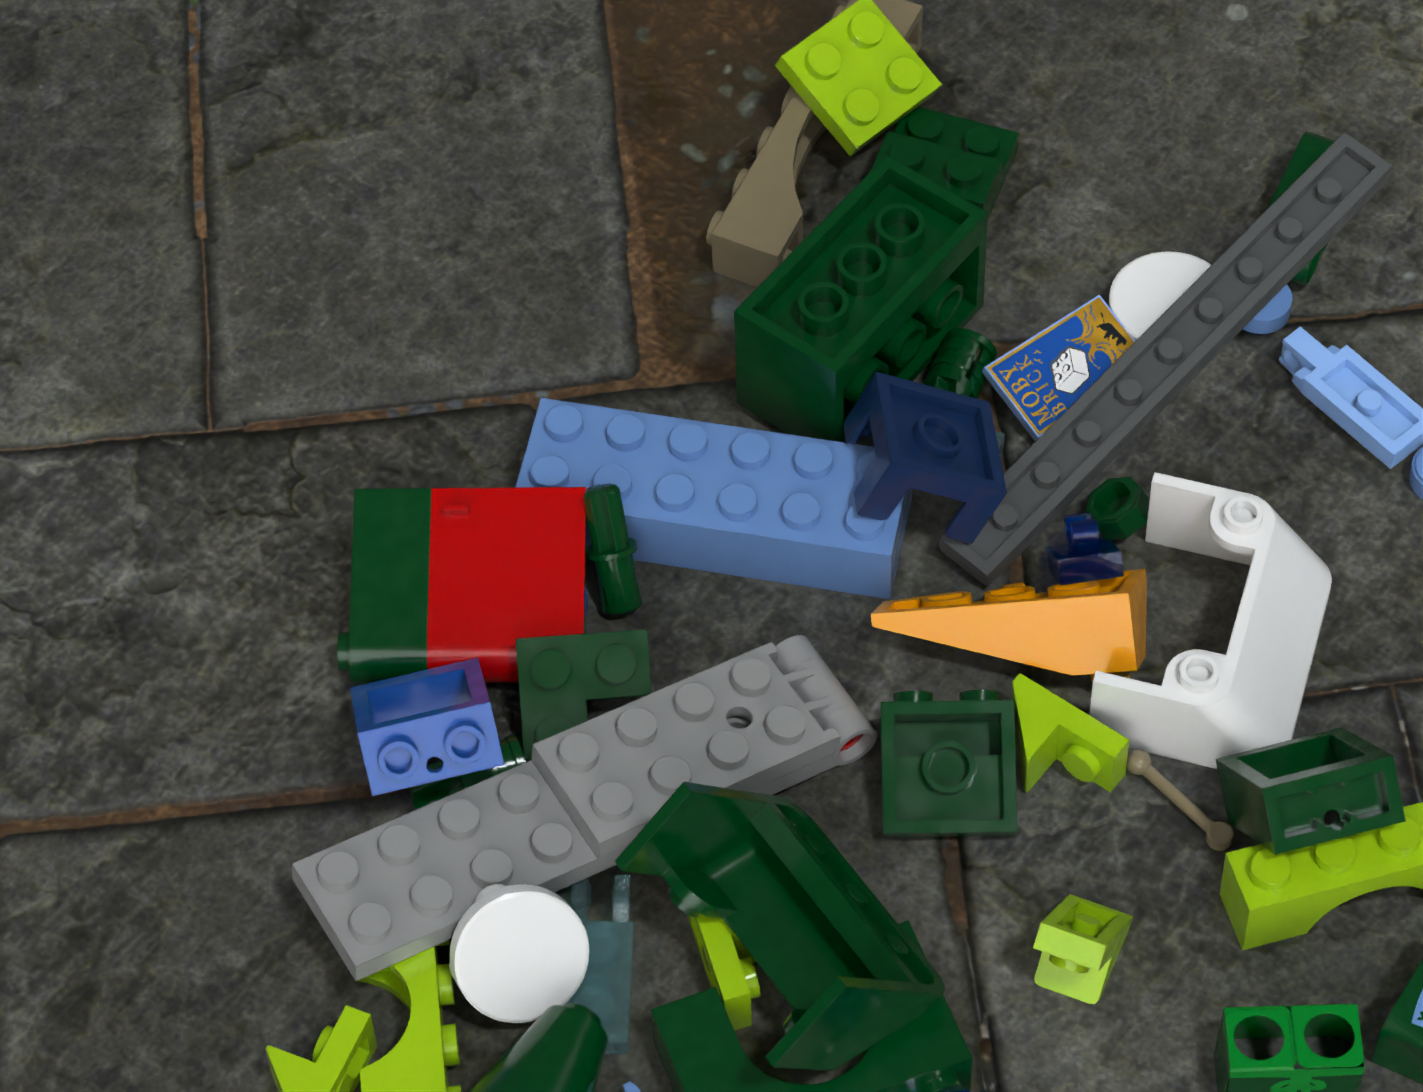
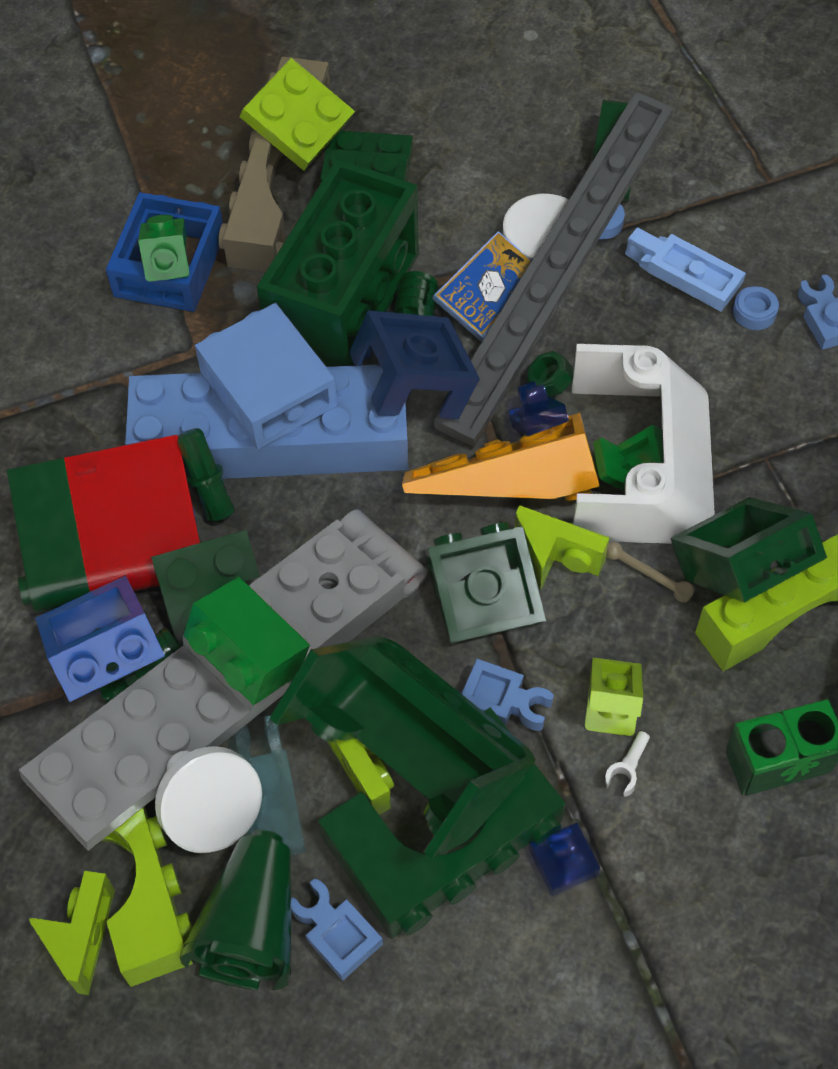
camera: 15 degrees left, 5 degrees up
(607, 760) = (245, 640): none -> green brick
(611, 279) = (127, 273): none -> blue window
(627, 232) = (163, 248): none -> green bracket
(721, 432) = (266, 375): none -> medium blue brick
(937, 914) = (502, 691): none -> medium blue plate
(1074, 1038) = (629, 763): none -> white hand
(1168, 636) = (616, 461): none -> green bracket

